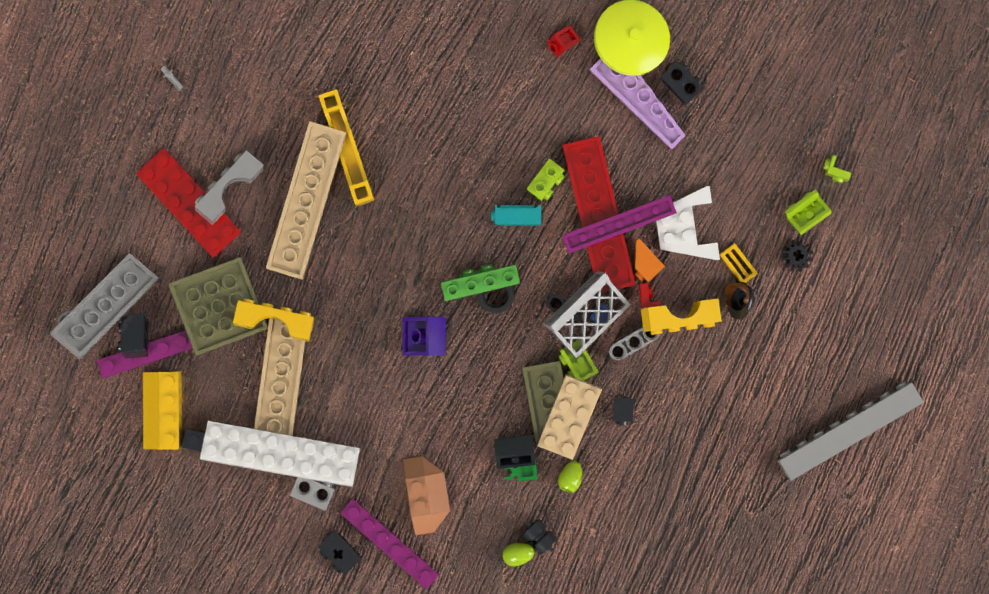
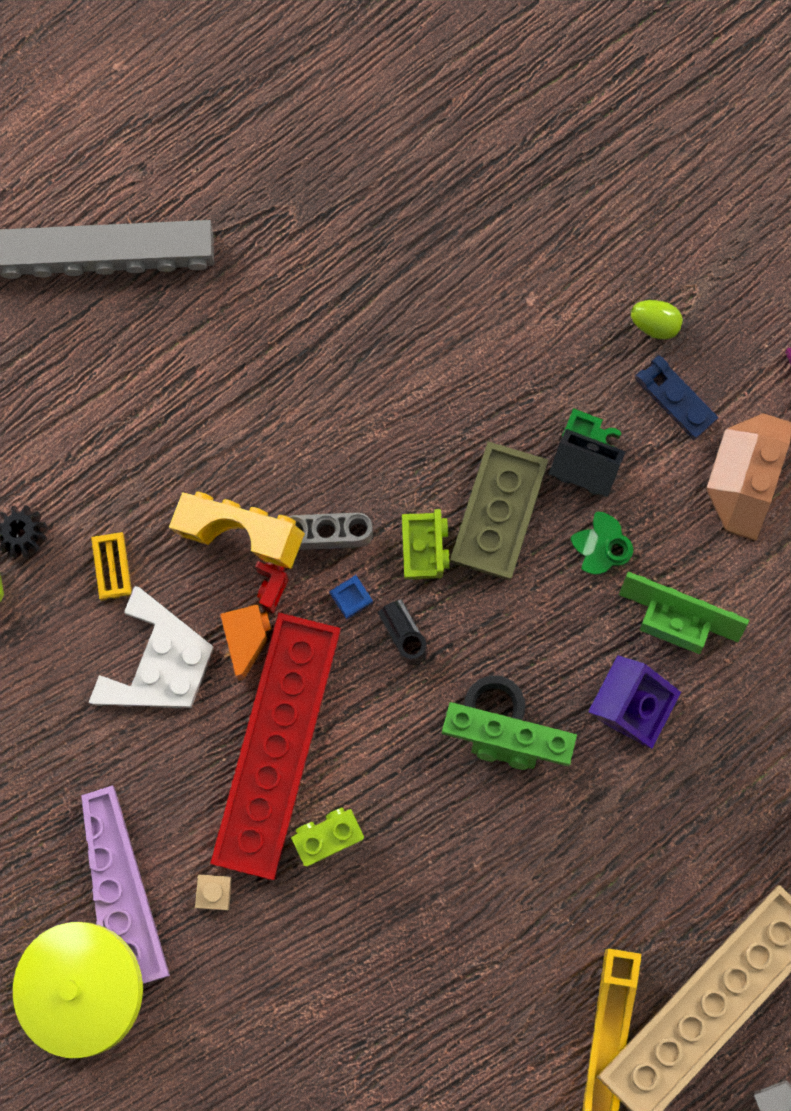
camera: 150 degrees left, 10 degrees down
(423, 393) = (679, 616): none -> bright green bracket
(484, 515) = (676, 398): none -> dark blue plate
(486, 412) = (597, 544): none -> green plate
(516, 215) = (399, 809): teal window -> none
(541, 538) = (614, 332): black wheel -> none
(563, 40) = (184, 1042): red bracket -> none
(569, 416) = (480, 470): tan plate -> none
(570, 477) = (522, 387): lime animal -> none
(579, 300) = (384, 626): light grey fence -> none
(590, 123) = (213, 892): none -> tan plate
(619, 224) = (254, 711): magenta plate -> none
(623, 410) = (395, 442): black brick -> none
(677, 86) = (49, 875): black brick -> none
(739, 299) = (139, 510): black piece -> none

